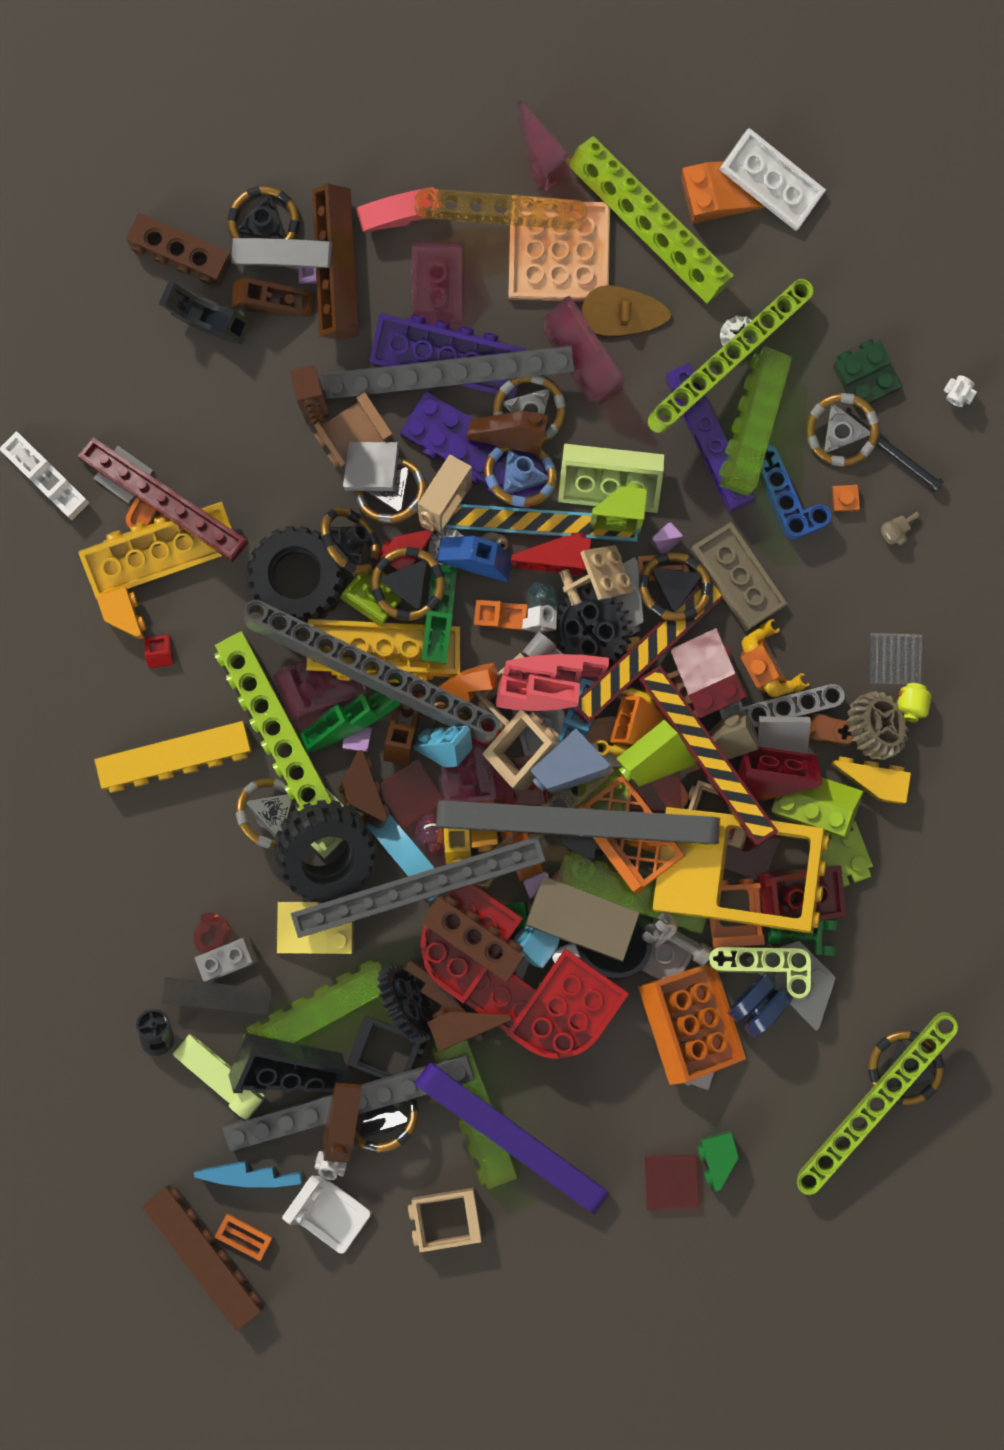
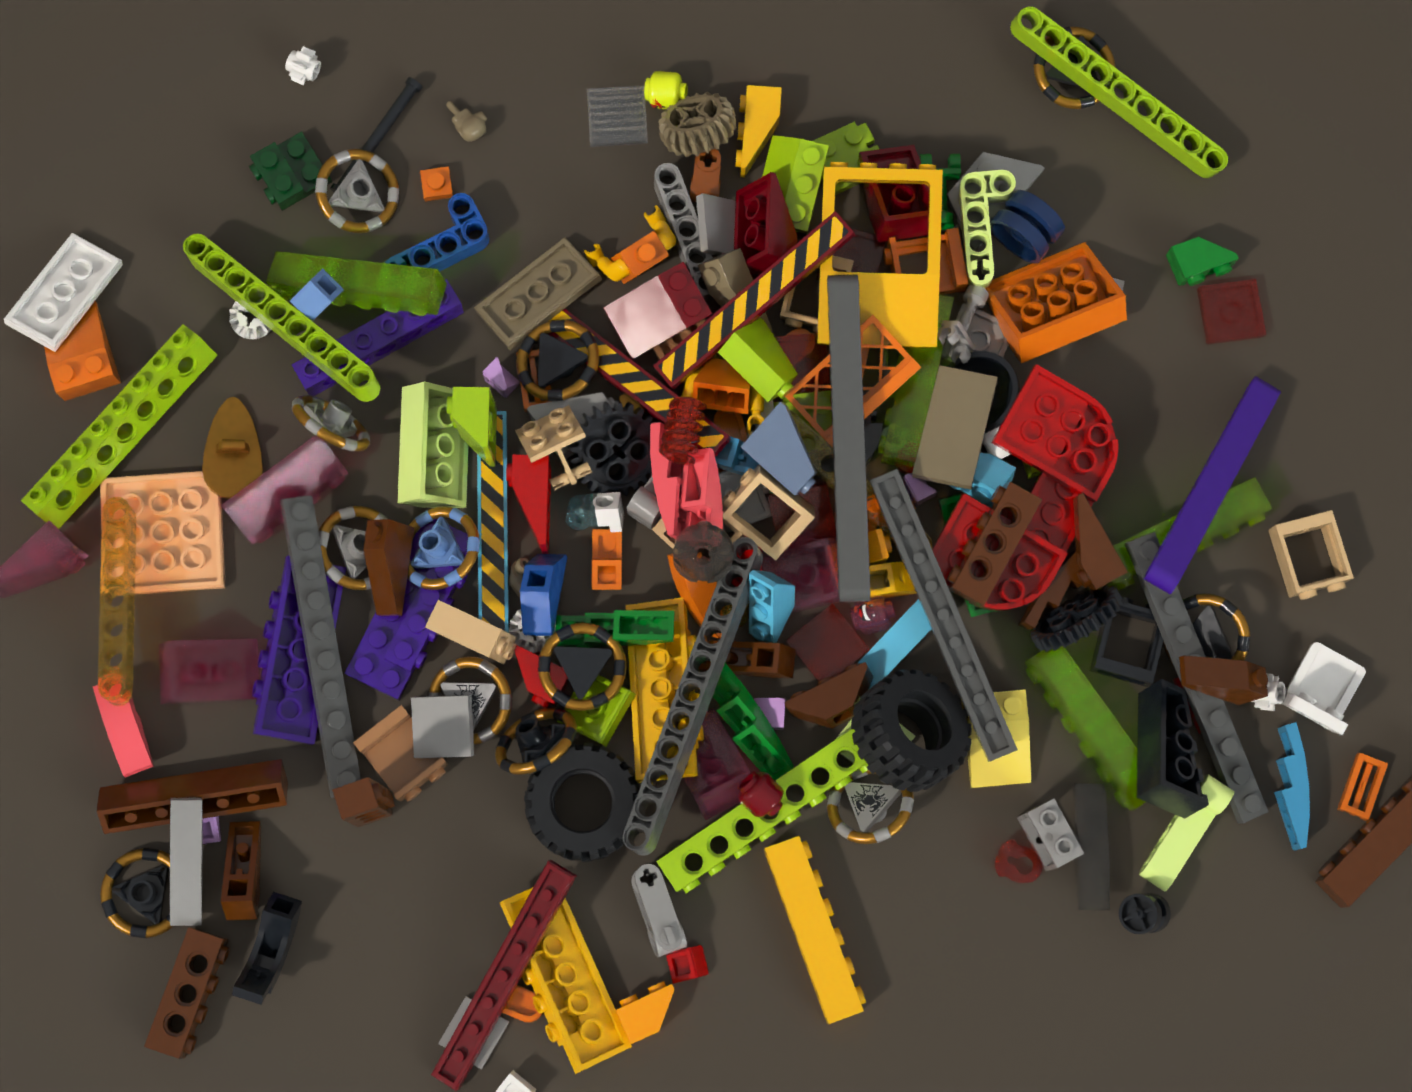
camera: 105 degrees left, 5 degrees down
(199, 630) = (658, 911): none -> light grey piece
(283, 719) = (760, 794): none -> dark red head
(498, 692) = (703, 536): none -> clear smoke plate
(595, 680) = (682, 429): none -> clear red piece
(635, 391) = (331, 422): none -> light grey piece
(744, 385) = (316, 295): none -> medium blue brick

